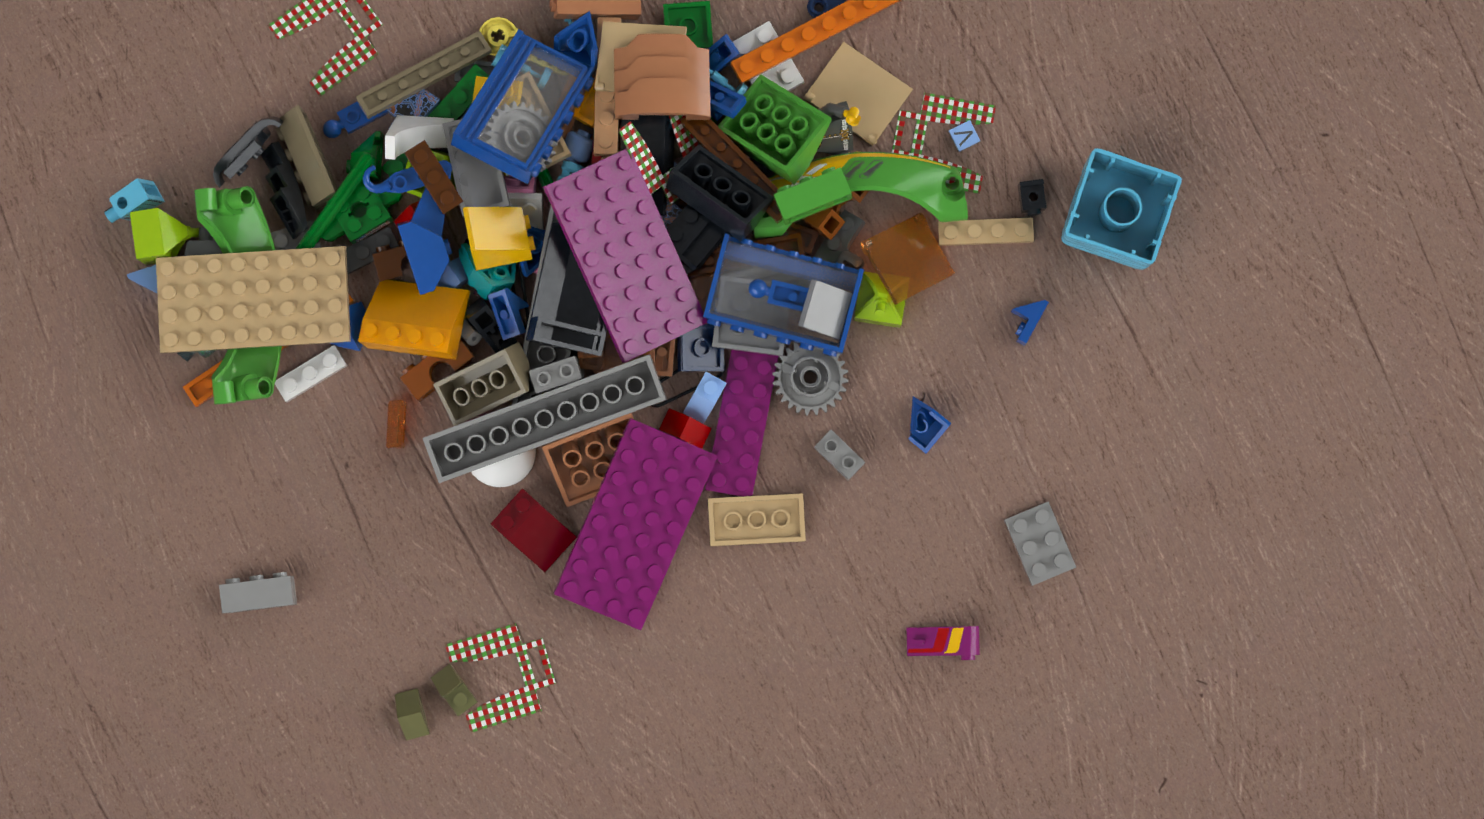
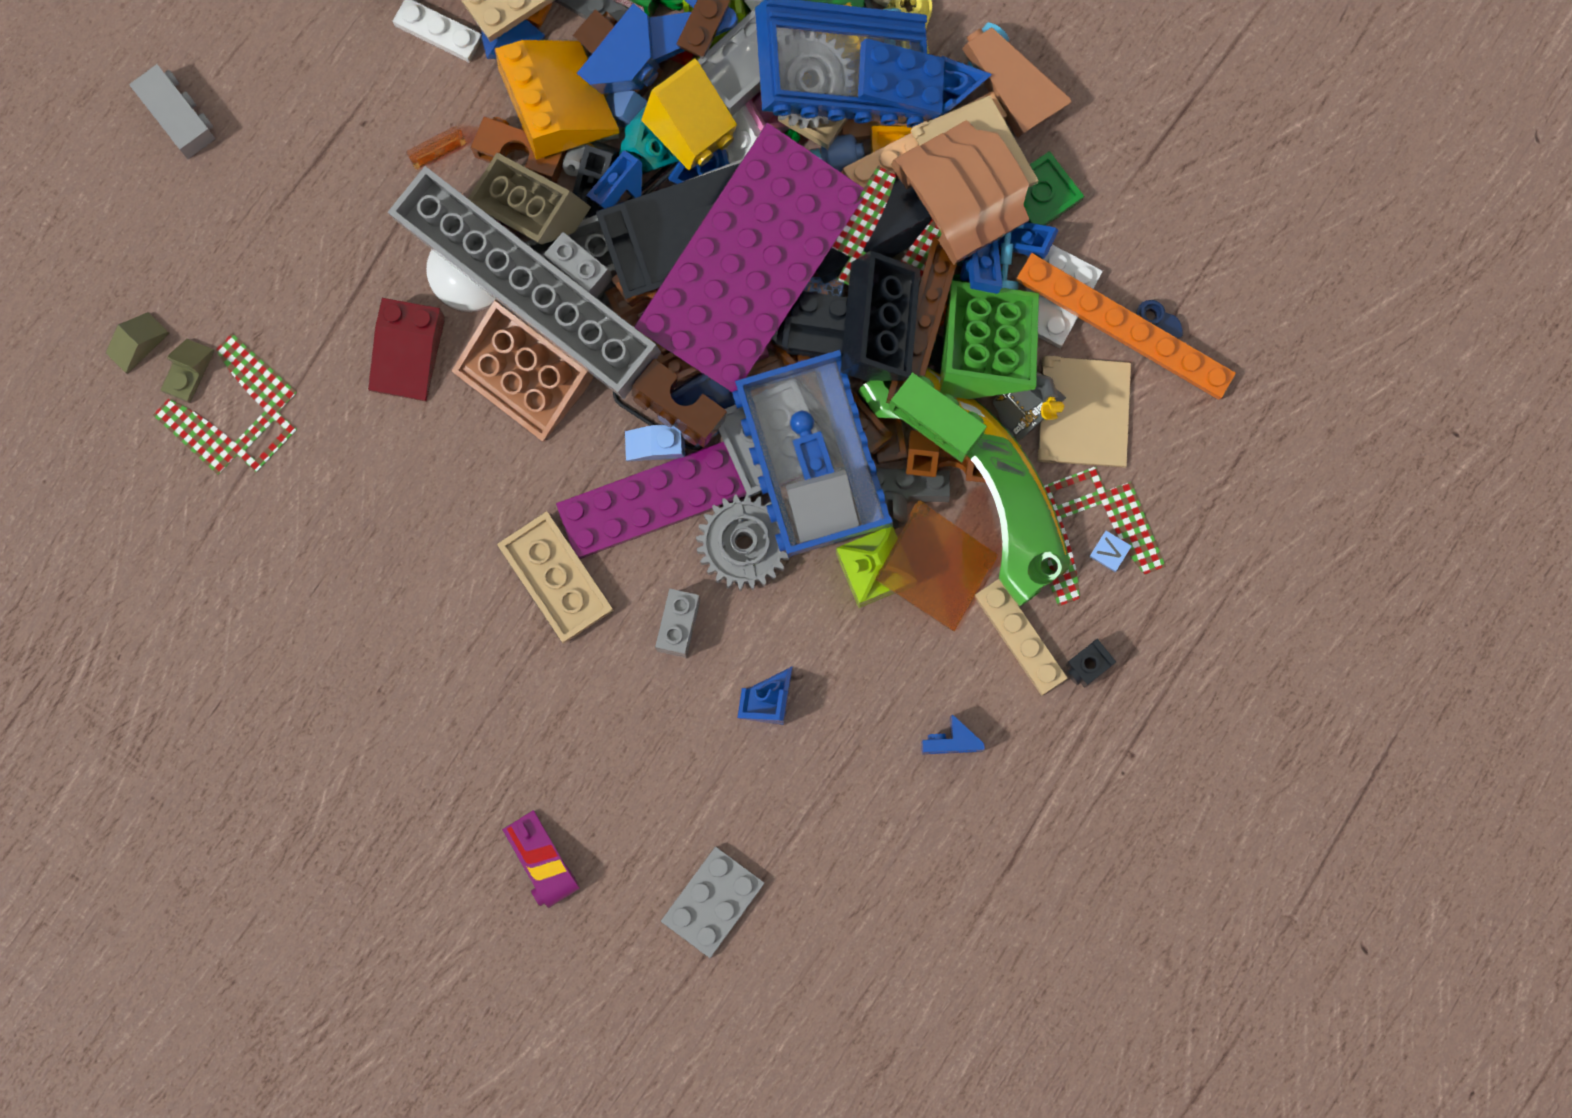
camera: 55 degrees right, 5 degrees down
(557, 74) = (901, 77): none -> blue plate
(635, 524) = (472, 449): magenta plate -> none
(676, 375) = (696, 421): none -> reddish brown arch
(685, 428) = (609, 445): red slope -> none
(1120, 209) = (1135, 764): medium azure brick -> none

